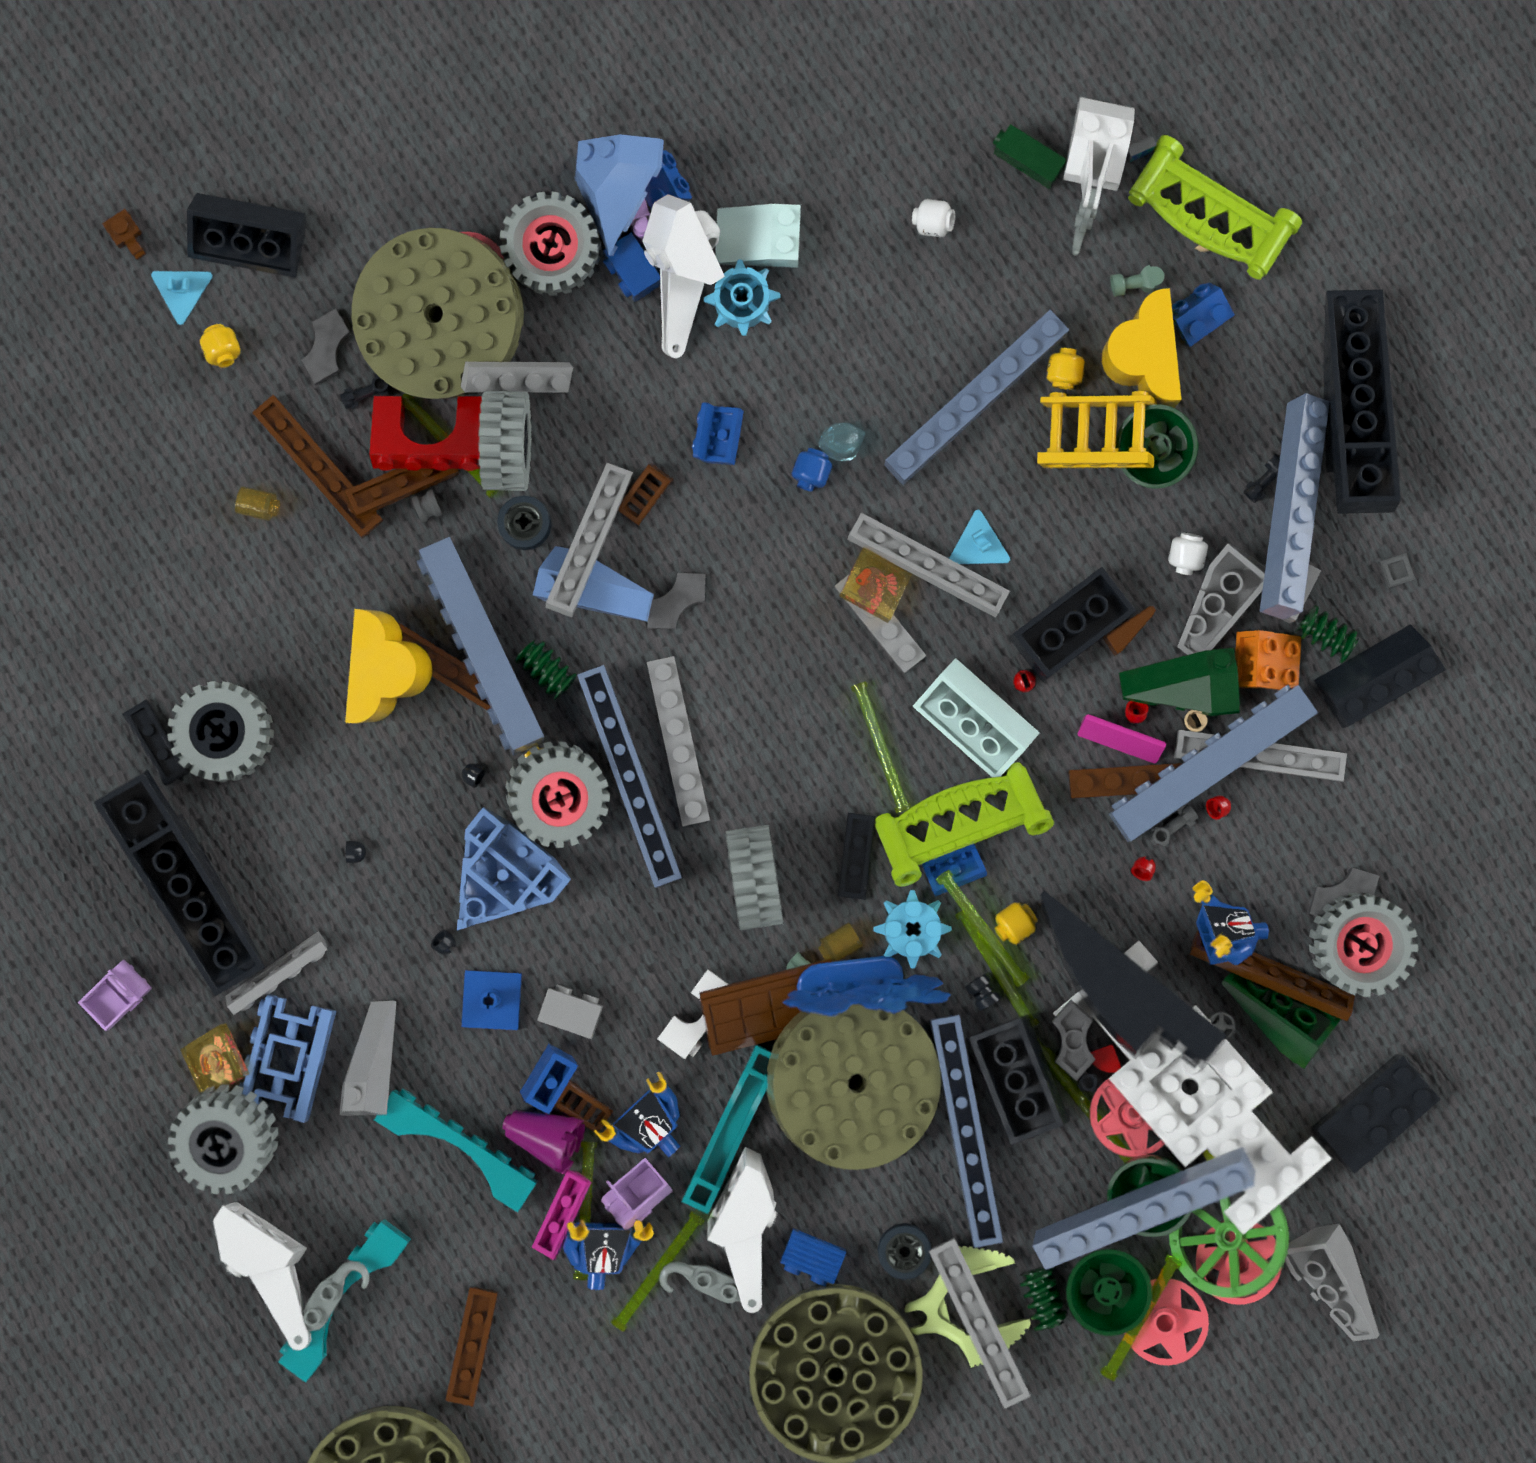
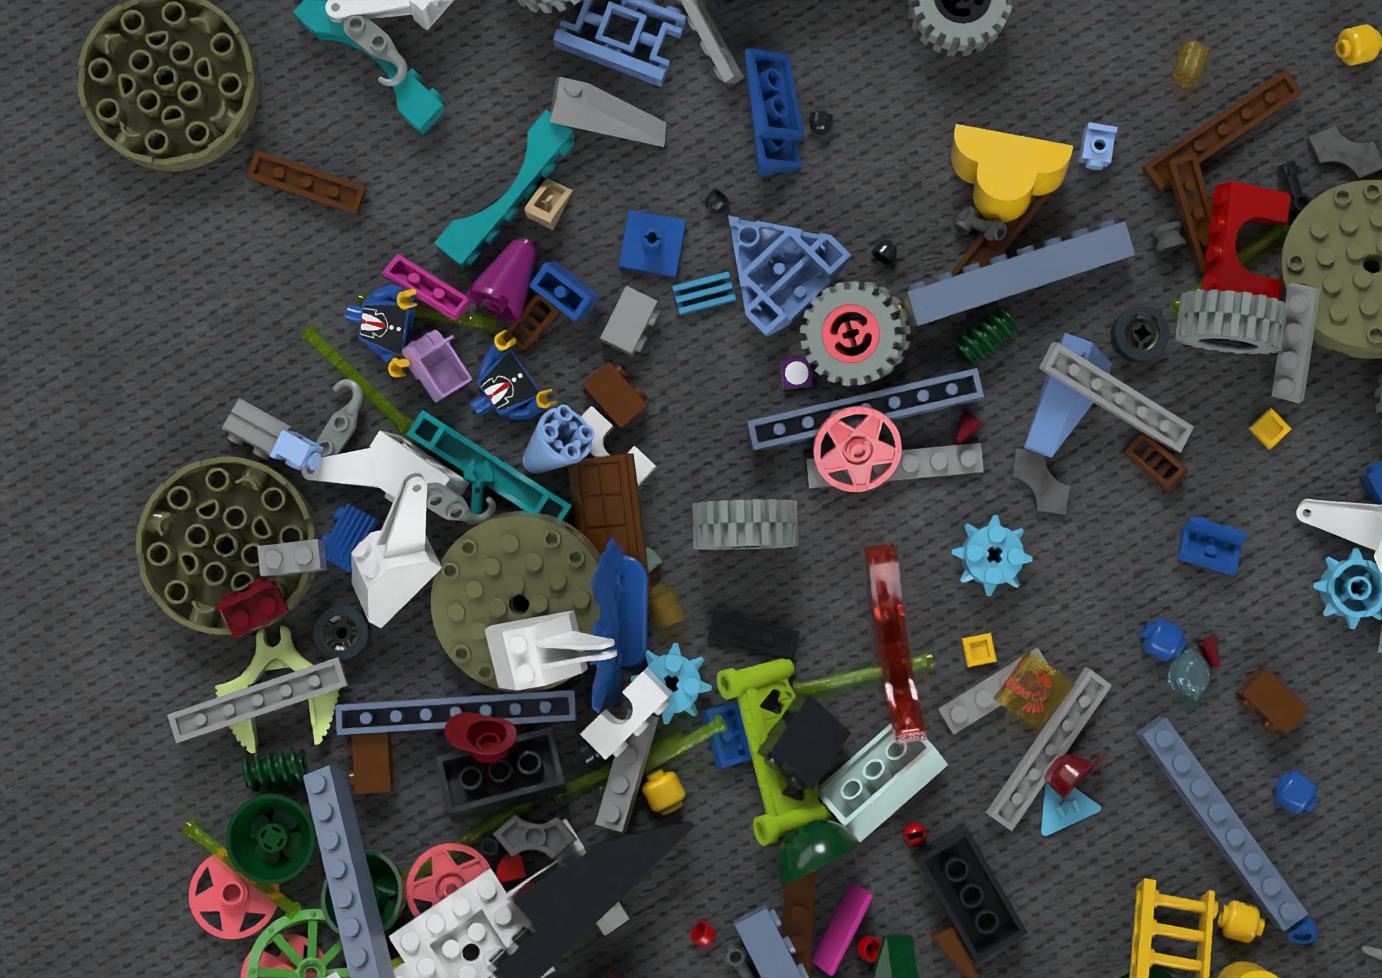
camera: 90 degrees right, 0 degrees up
(335, 586) = (1089, 155): none -> light blue brick
(349, 898) = (773, 111): none -> blue slope
(432, 697) = (970, 219): none -> dark grey bar
(464, 1106) = (548, 203): none -> tan slope
(525, 922) = (700, 282): none -> dark azure tile
(599, 390) = (1270, 428): none -> yellow tile
(601, 846) = (796, 373): none -> tile
(633, 677) = (966, 427): none -> dark red slope
(643, 1017) = (615, 395): none -> reddish brown brick
(668, 779) = (857, 449): none -> coral wheel
(696, 1066) = (558, 441): none -> light blue cone
(719, 1359) = (254, 427): none -> light grey brick
(735, 1318) = (297, 450): none -> light blue brick
(746, 1138) = (478, 484): none -> teal bar
(752, 655) = (975, 555): none -> medium azure brick
(815, 424) = (1209, 648): none -> dark red slope
(828, 1204) = (399, 557): none -> white slope
(840, 1307) = (291, 558): none -> light grey brick
(843, 640) = (979, 650): none -> yellow tile
(849, 723) = (892, 643): none -> clear red arch
(857, 362) = (1271, 701): none -> reddish brown brick
(892, 1338) = (253, 607): none -> dark red bracket
(898, 1054) = (542, 650): none -> white slope
(939, 331) = (1296, 792): none -> blue head
(948, 543) = (1069, 772): none -> dark red piece
(952, 796) = (803, 742): none -> black brick
(968, 981) = (609, 734): none -> white arch
(985, 1102) = (481, 735): none -> dark red piece
(1000, 960) = (626, 779): none -> light grey plate
(1024, 1206) = (371, 763): none -> reddish brown brick
(1050, 777) = (812, 848): none -> dark green piece
(1067, 311) = (1303, 931): none -> blue tile

